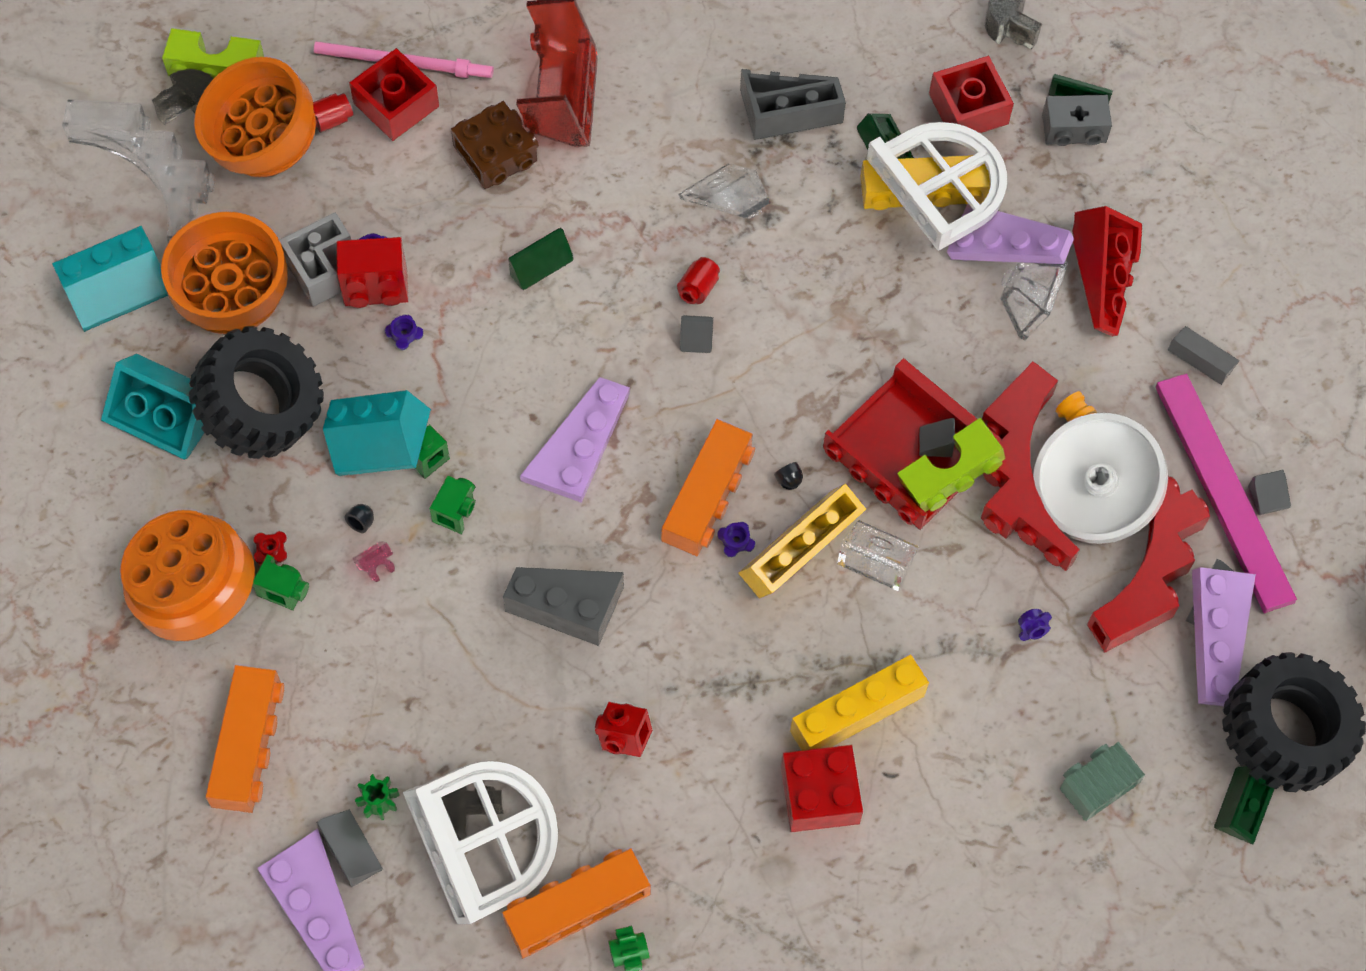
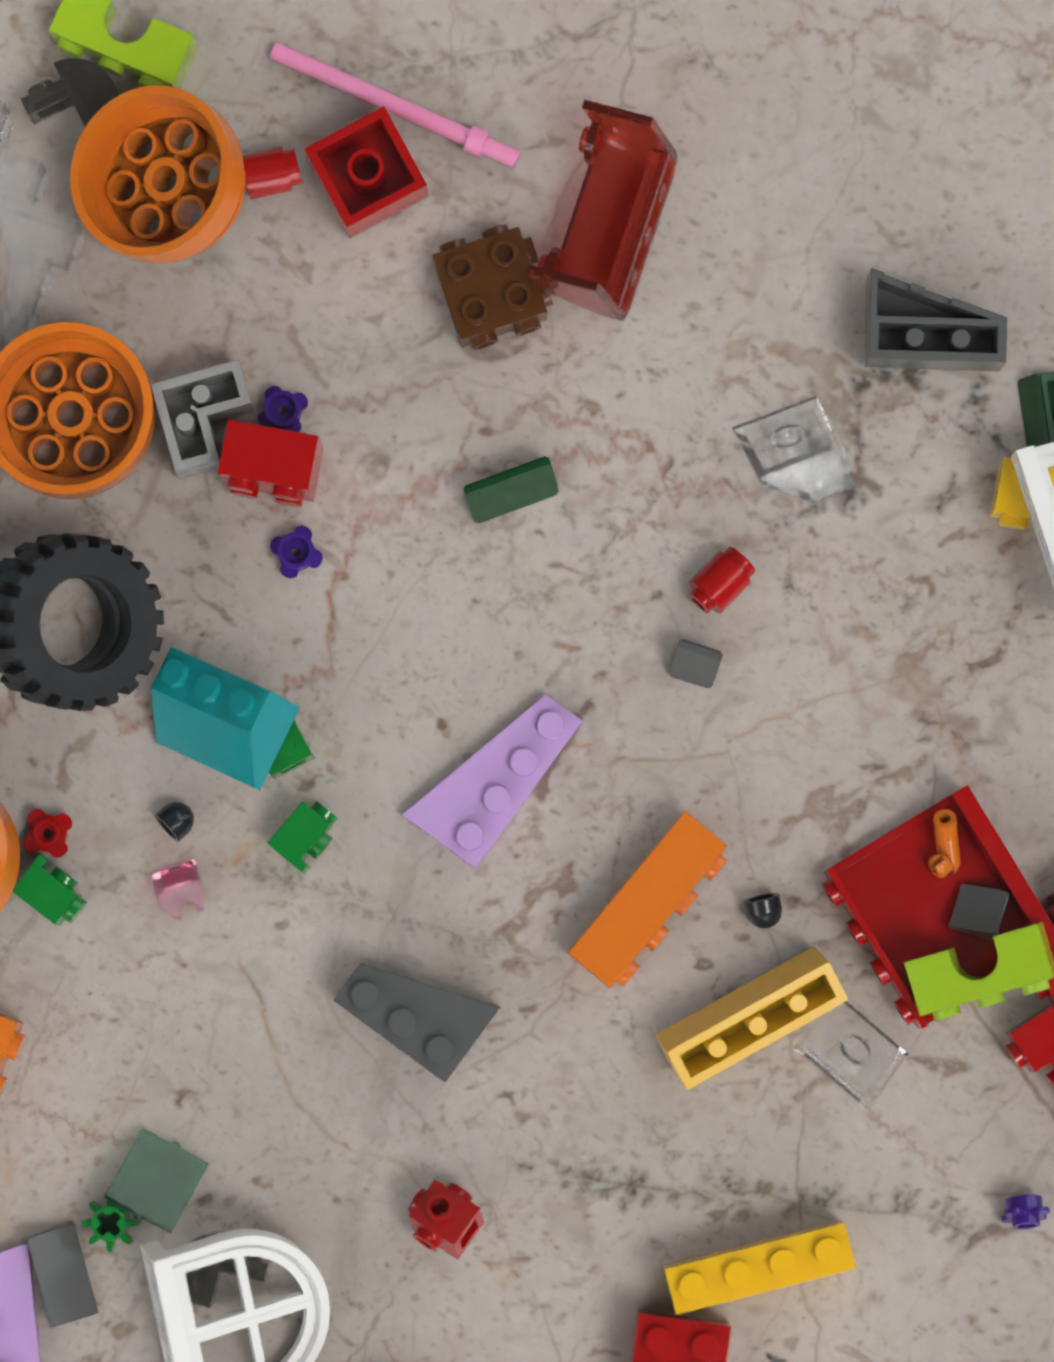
camera: 20 degrees right, 20 degrees up
(403, 759) = (156, 1180): none -> clear green piece
(734, 530) = (675, 991): dark purple plate -> none
(903, 409) = (947, 844): none -> orange arm

